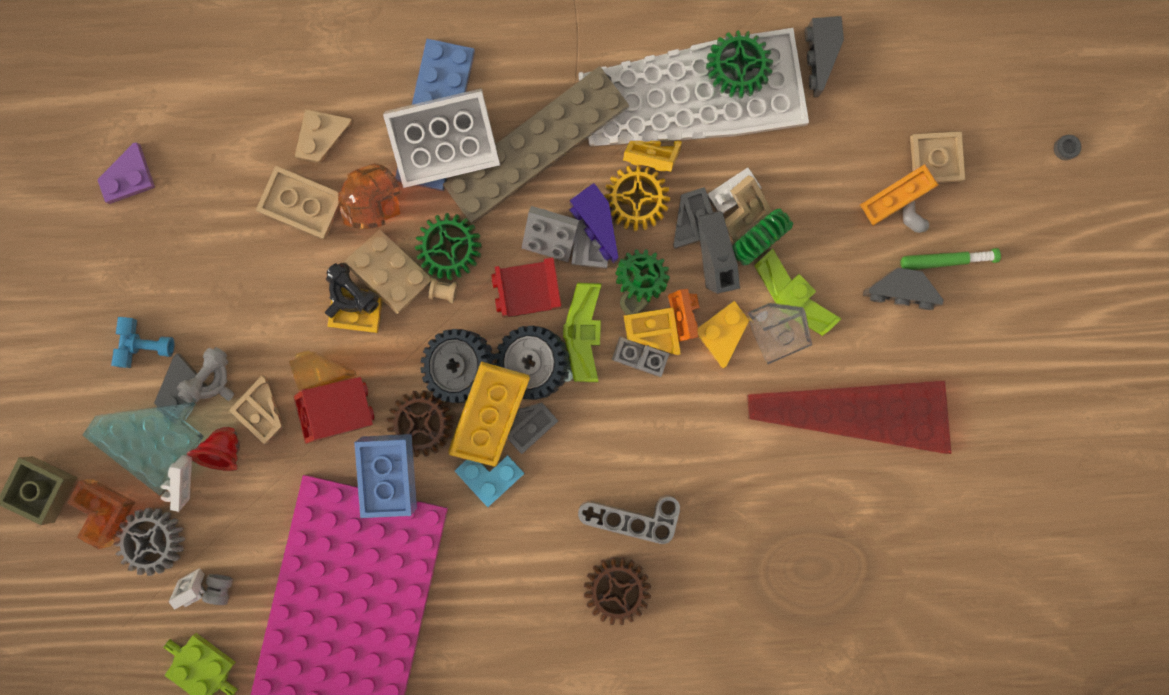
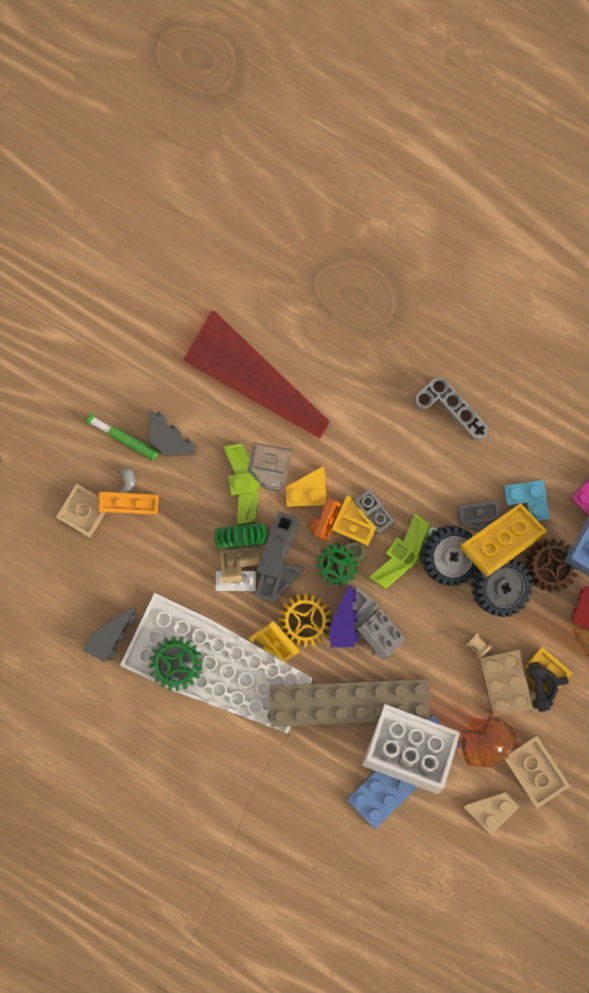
camera: 150 degrees left, 0 degrees up
(459, 243) = (456, 664): green gear -> none
(526, 288) = (420, 608): red panel -> none
(627, 585) = (502, 368): reddish brown gear -> none

